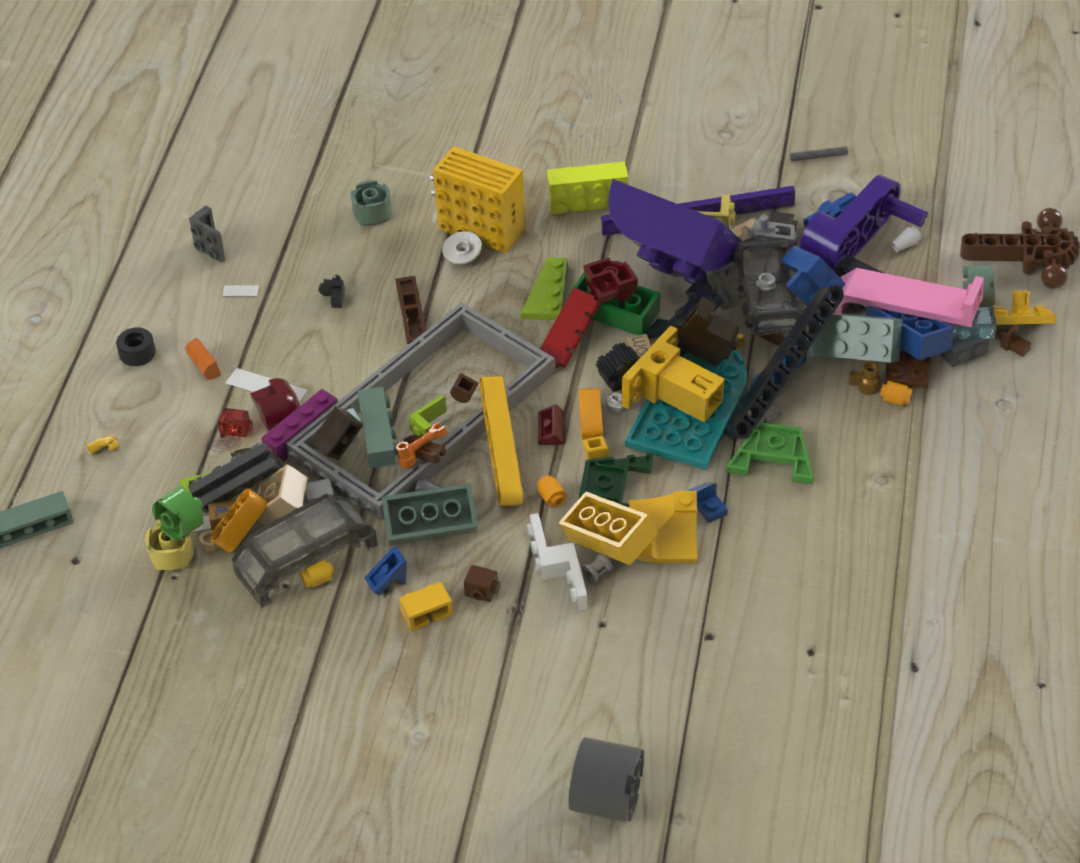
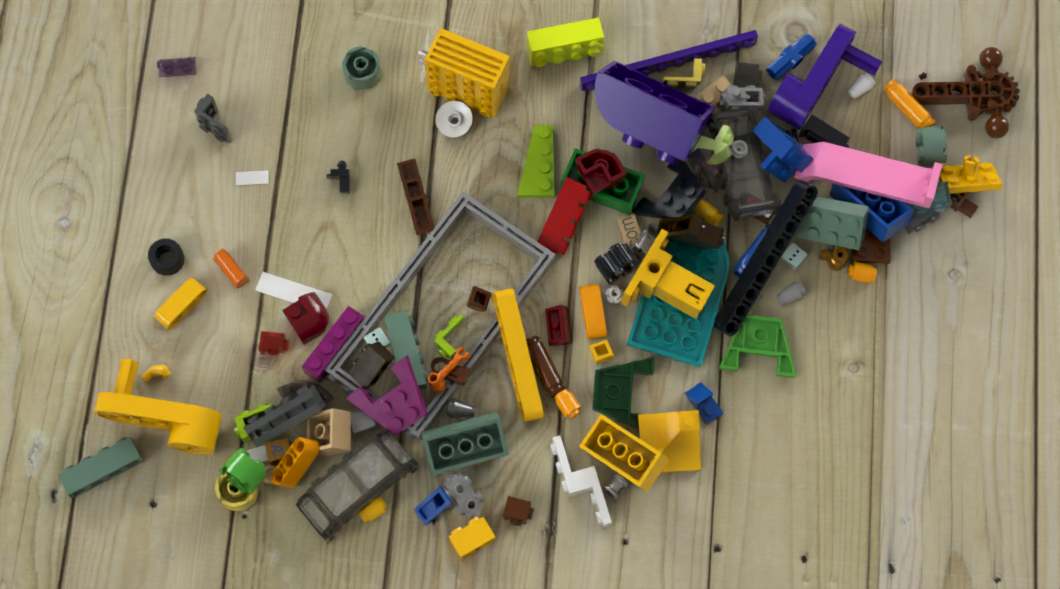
camera: 10 degrees left, 25 degrees up
(122, 478) = (190, 426): none -> yellow beam
(142, 386) = (180, 303): none -> yellow beam
(187, 197) = (177, 67): none -> clear purple hinge
(360, 471) = (397, 407): none -> magenta wing
(418, 556) = (459, 490): none -> light grey brick
(529, 456) = (544, 366): none -> reddish brown axle
(744, 269) = (719, 145): none -> yellowish green brick
(815, 408) = (791, 293): none -> light grey cone
(820, 378) = (794, 256): none -> light aqua tile
(952, 252) = (908, 105): none -> light orange axle

